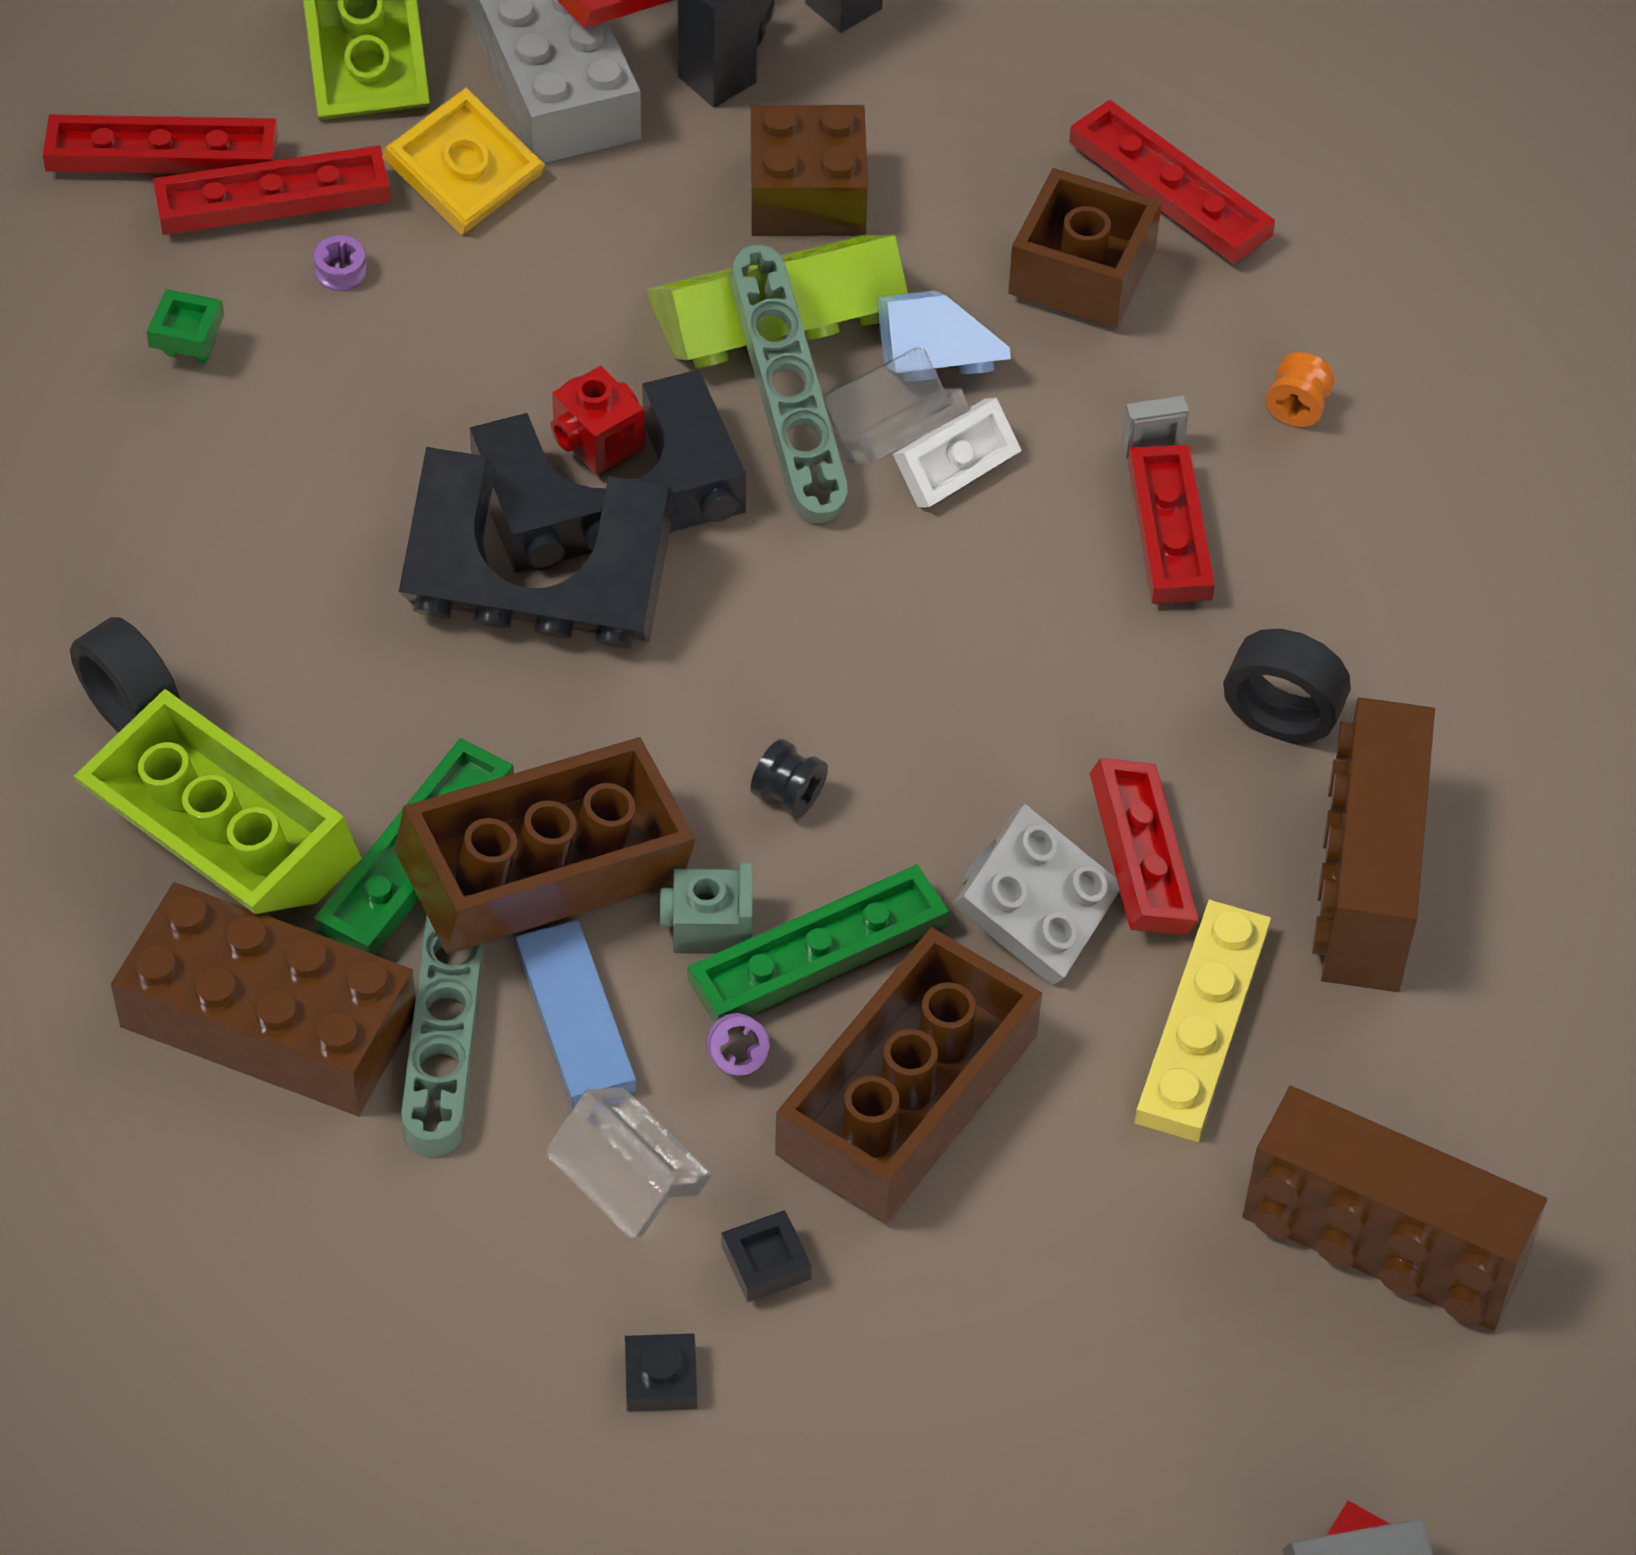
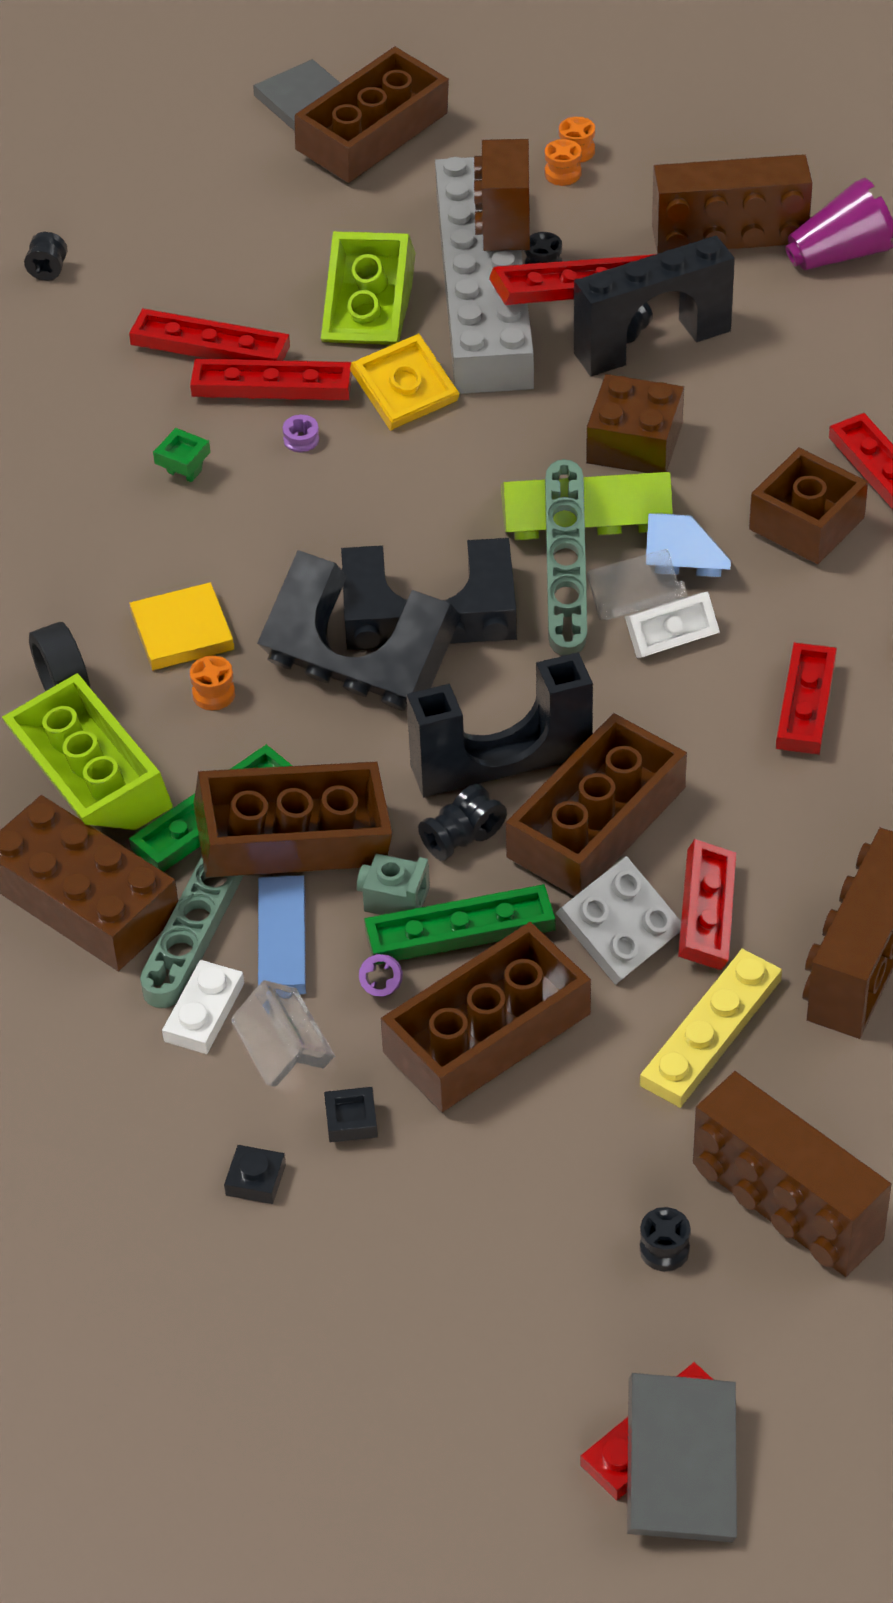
camera: 20 degrees right, 5 degrees down
(270, 583) = (181, 626): none -> yellow tile
(356, 647) = (212, 683): none -> orange wheel
(501, 1143) = (203, 1007): none -> white plate
(598, 420) = (431, 559): red brick -> none
(755, 816) = (446, 832): none -> black wheel
(864, 632) = (553, 729): none -> black arch
(950, 737) = (596, 805): none -> reddish brown brick
(1155, 423) = (818, 628): light grey tile -> none
(1246, 1319) = (668, 1226): none -> black wheel
(1299, 661) = (853, 800): black tyre -> none

